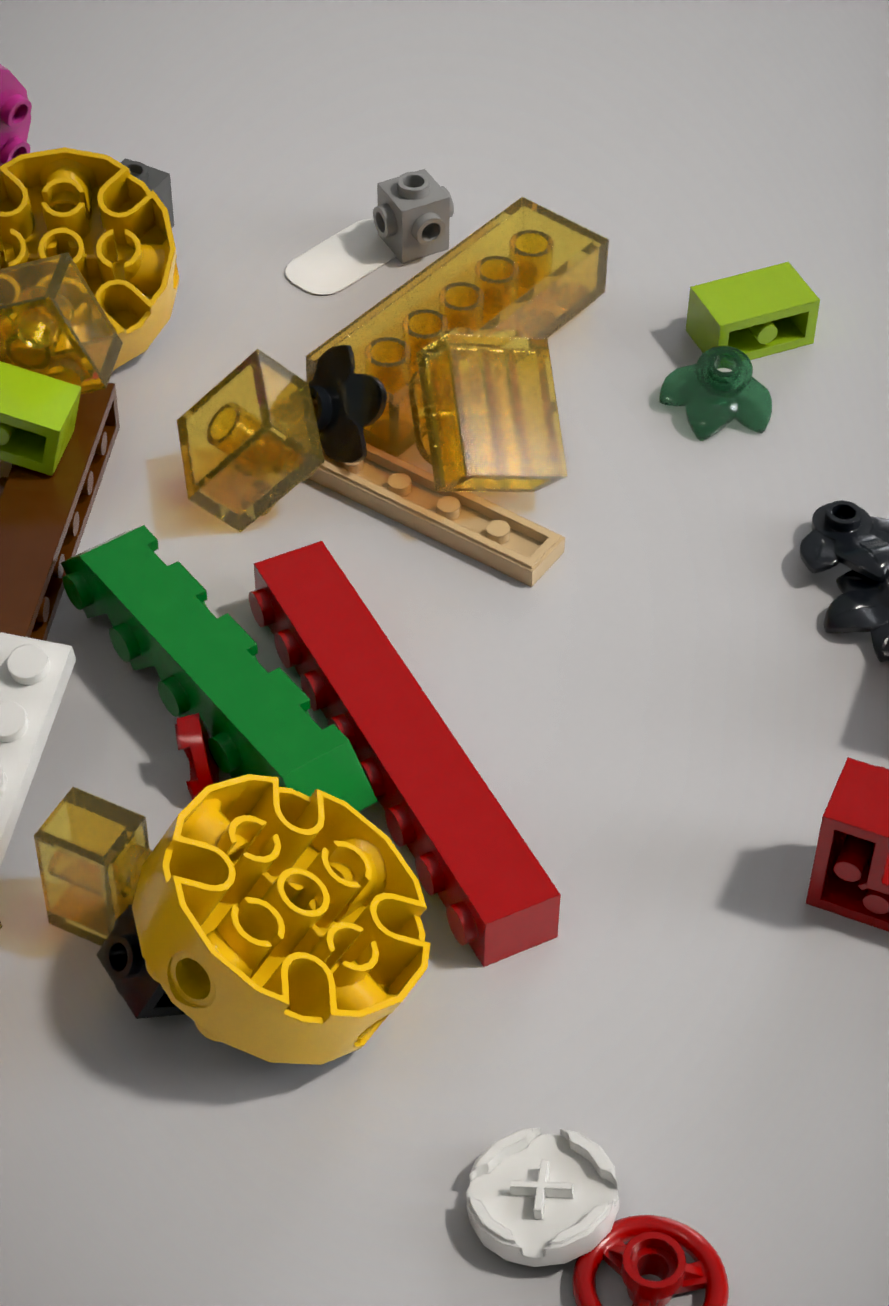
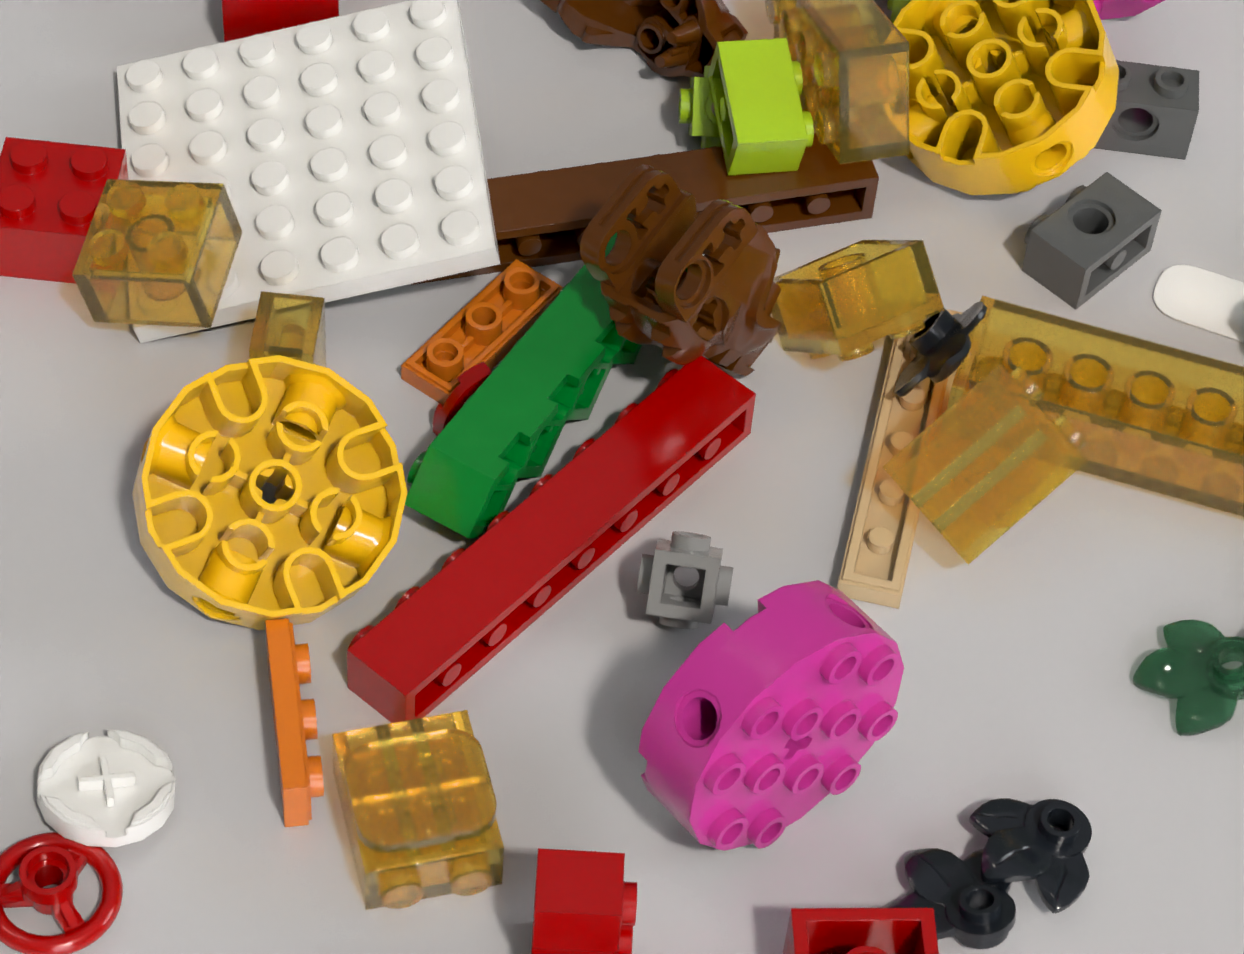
camera: 65 degrees right, 5 degrees up
(112, 738) = (481, 330): none -> orange tile
(244, 525) = (710, 311): none -> reddish brown animal
(245, 296) = (1090, 239): none -> dark grey brick
(502, 660) = (678, 604): none -> light grey brick
(529, 1011) = (293, 722): none -> orange tile
(677, 934) = (418, 810): none -> clear yellow brick
(737, 615) = (771, 716): none -> dark pink brick

